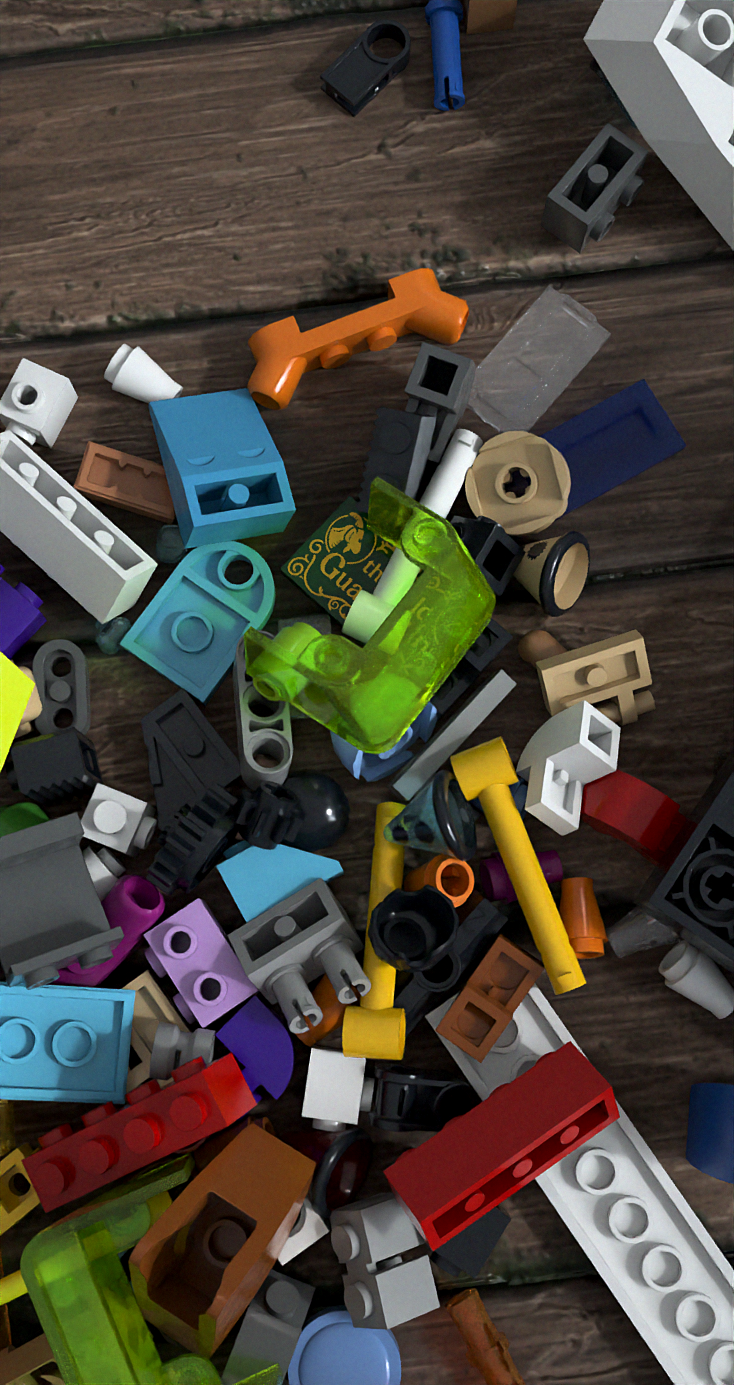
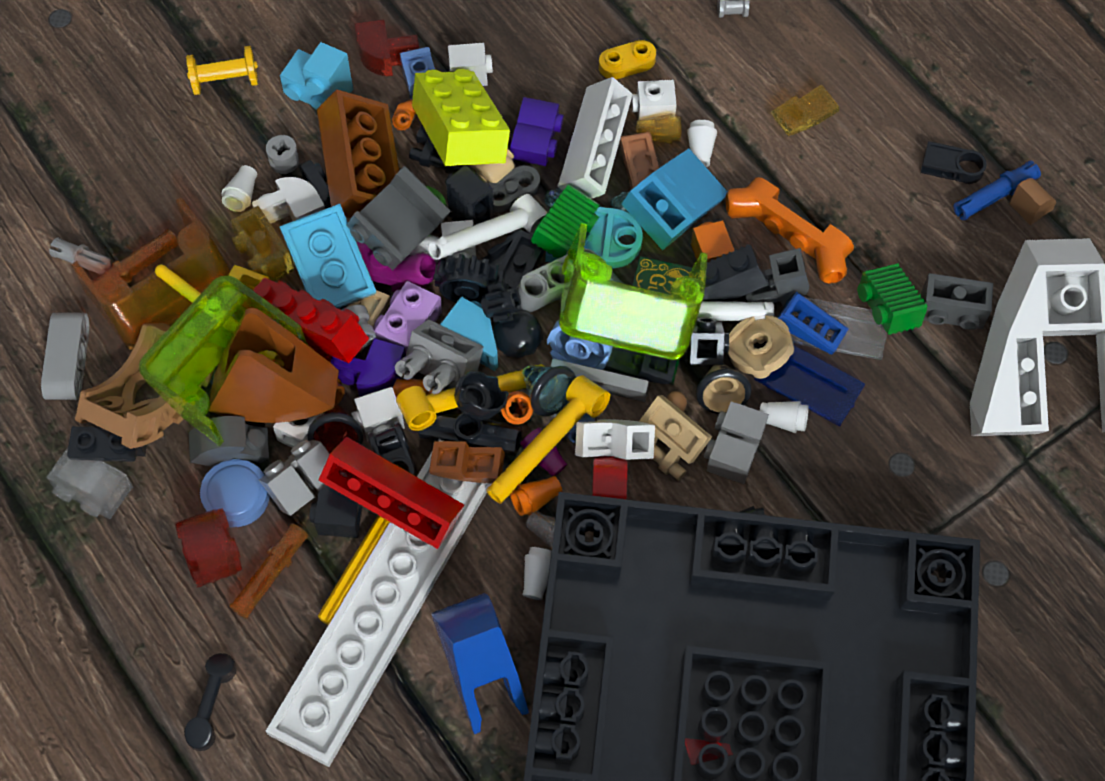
camera: 60 degrees right, 15 degrees down
(85, 420) = (662, 128): none -> clear yellow cone
(121, 695) = (523, 213): none -> white piece
(171, 208) = (805, 112): none -> clear yellow slope
(179, 645) = (563, 220): none -> green brick
(322, 459) = (711, 239): none -> orange brick
(494, 414) = (816, 315): none -> blue slope
(544, 267) = (892, 299): none -> green brick
(572, 1258) = (353, 570): none -> yellow axle
(626, 579) = (736, 442): none -> light grey piece
(636, 510) = (786, 415): none -> white cone

